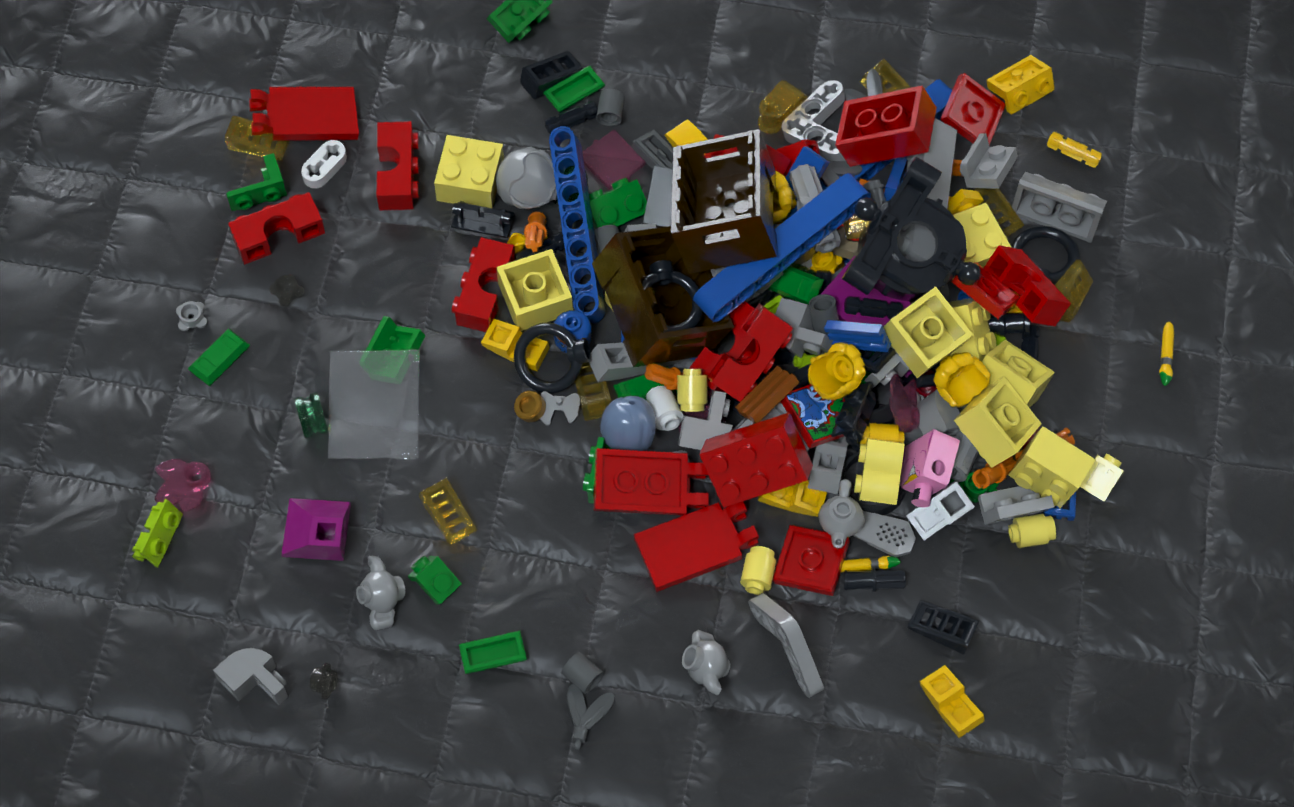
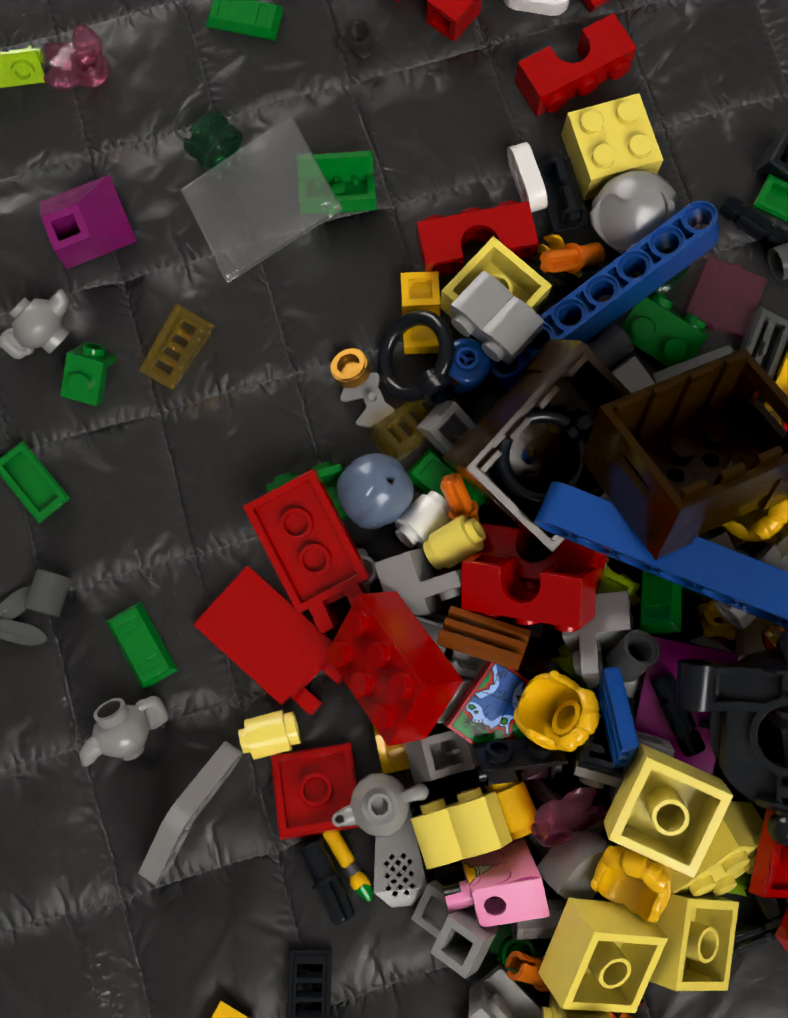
camera: 65 degrees right, 15 degrees up
(457, 232) = (527, 176): none -> white beam
(558, 288) = (495, 318): none -> light grey brick
(651, 632) = (141, 646): none -> green tile

